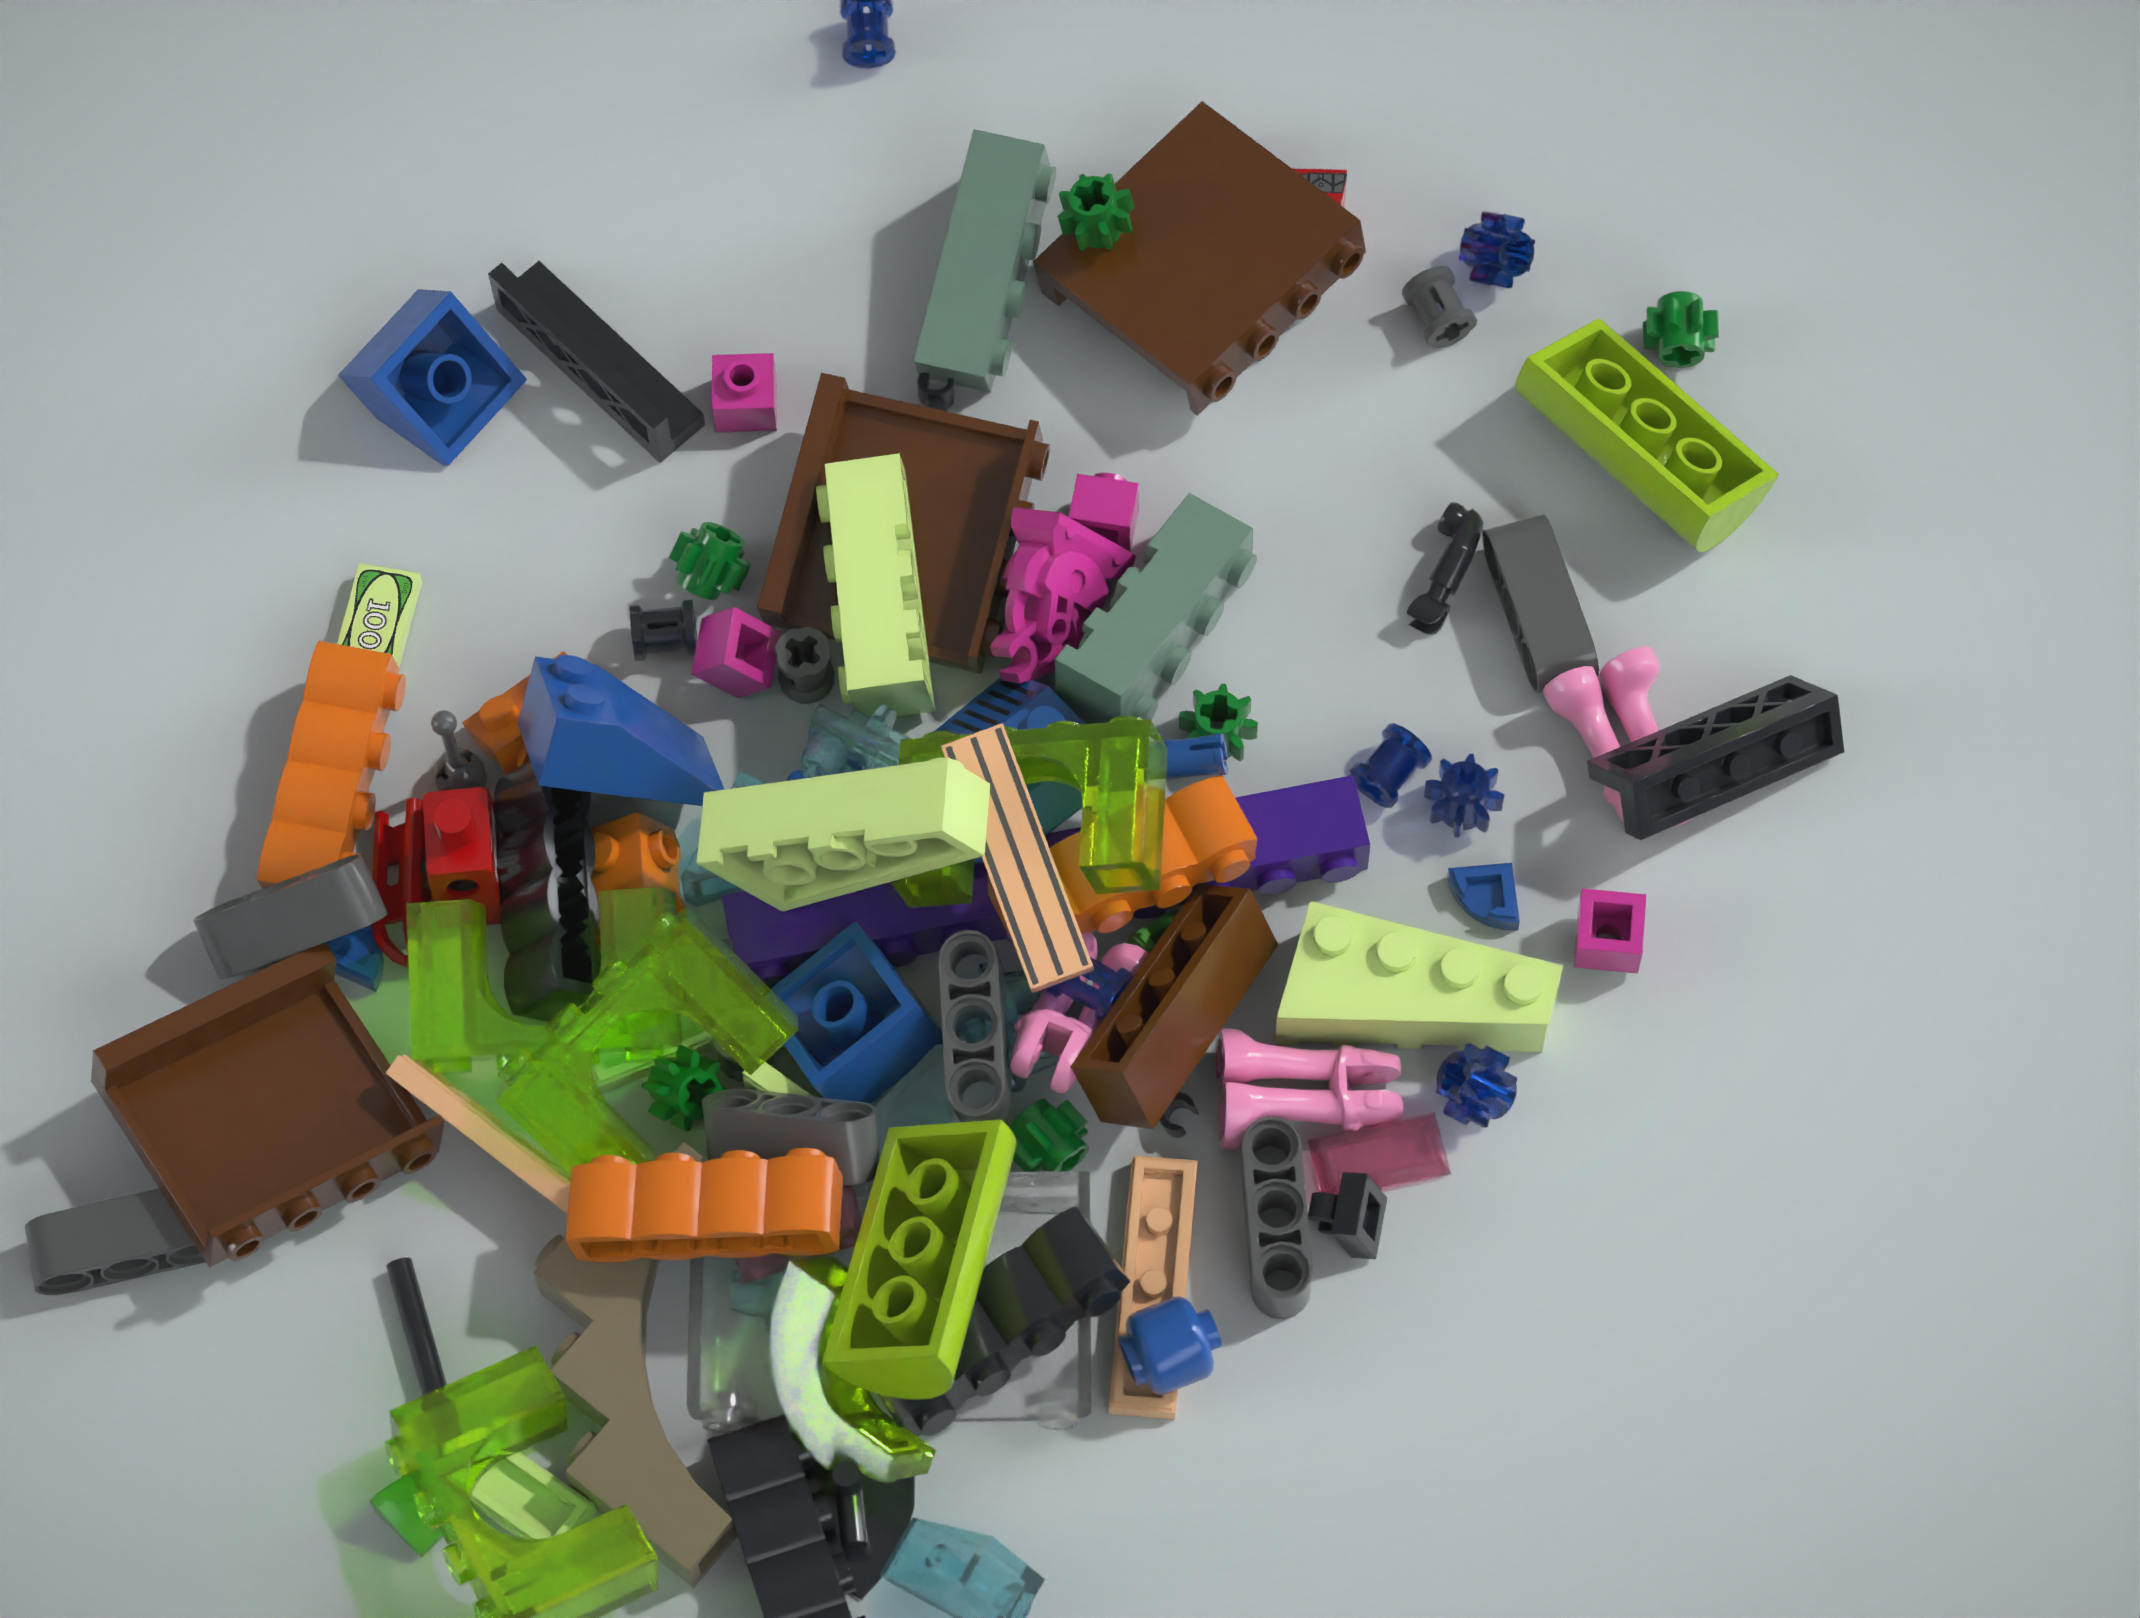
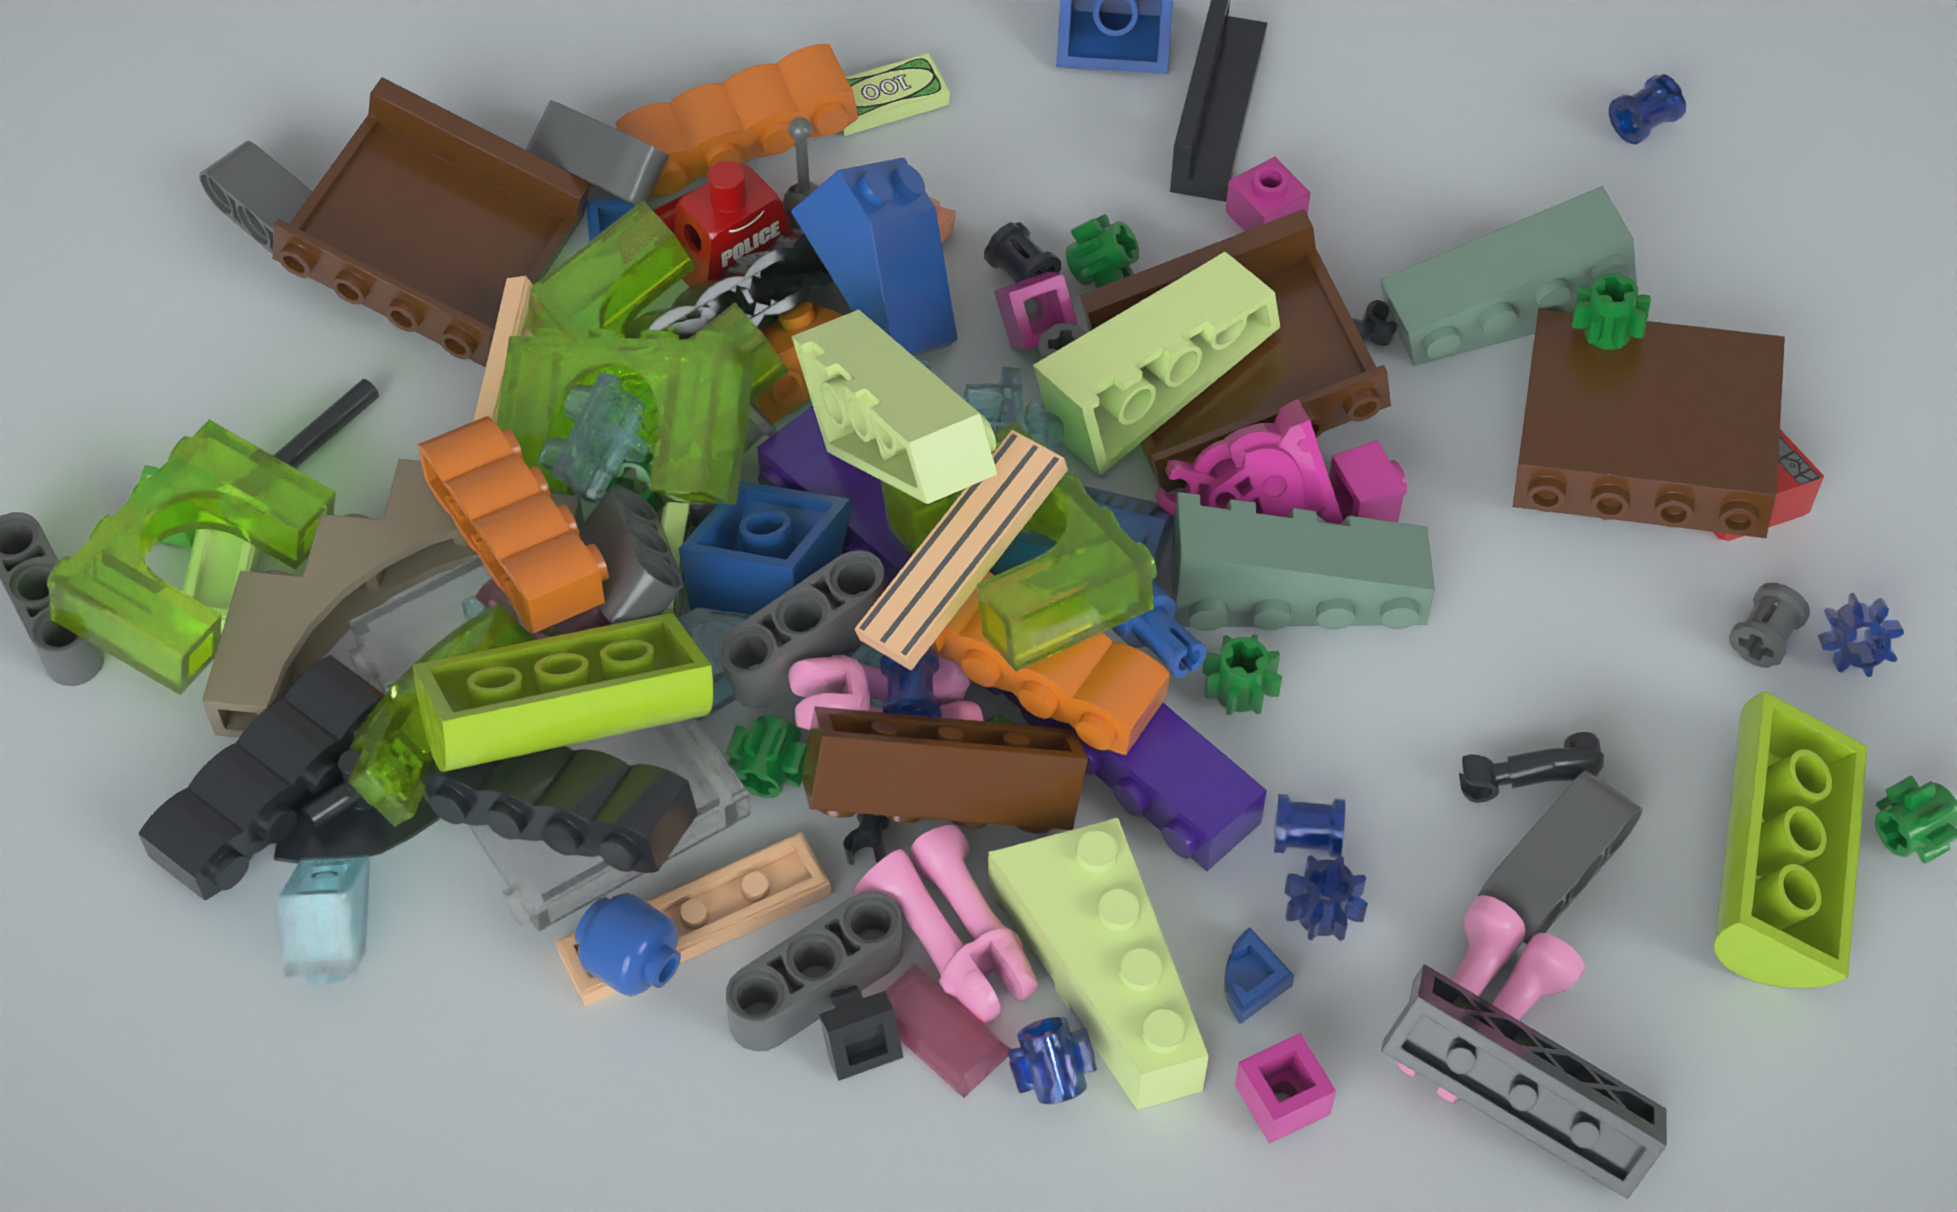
camera: 55 degrees right, 10 degrees down
(638, 1065) = (600, 440): none -> clear light blue hips

